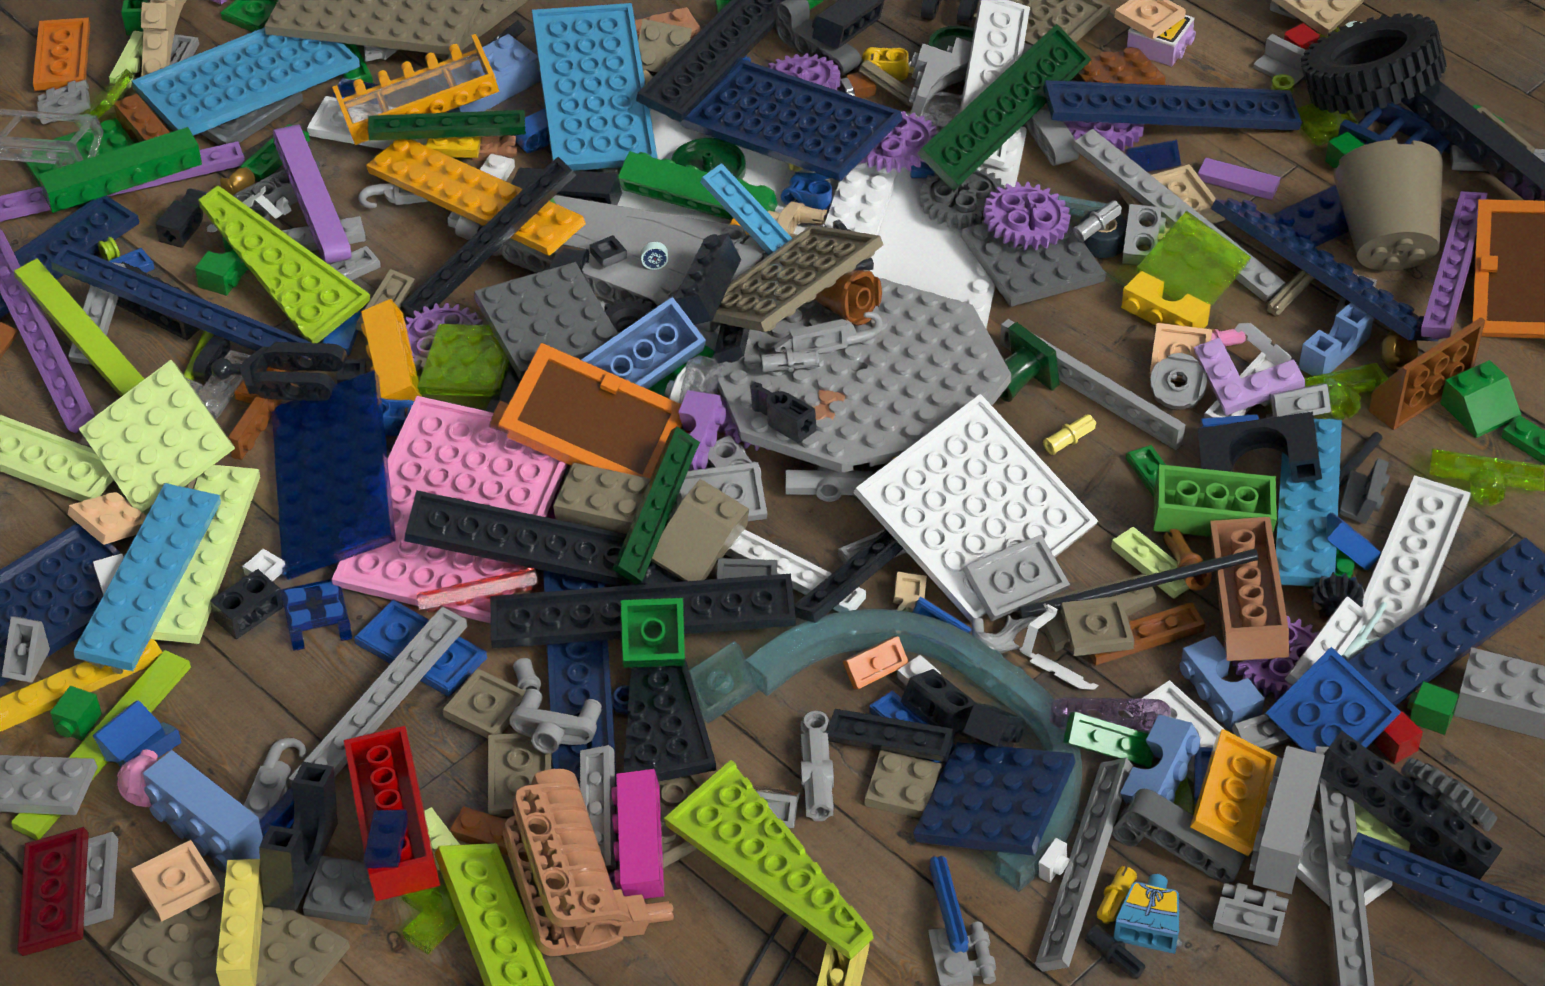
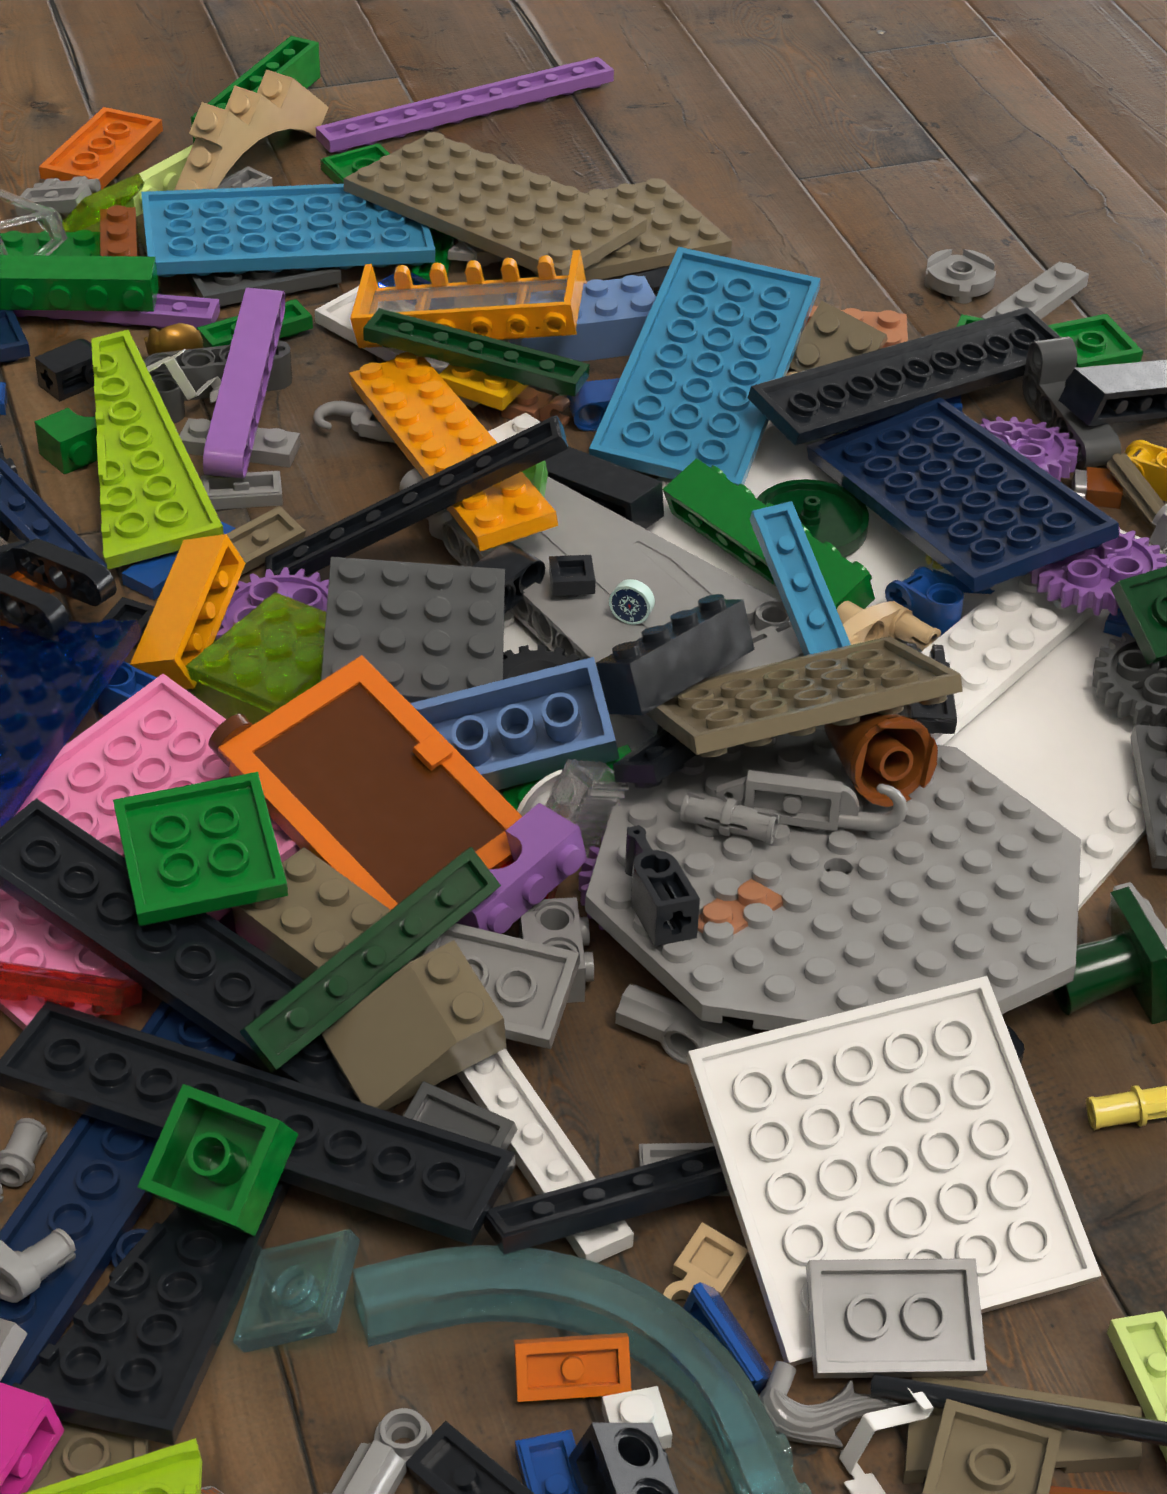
camera: 25 degrees right, 5 degrees down
(526, 482) = (199, 848): none -> green plate

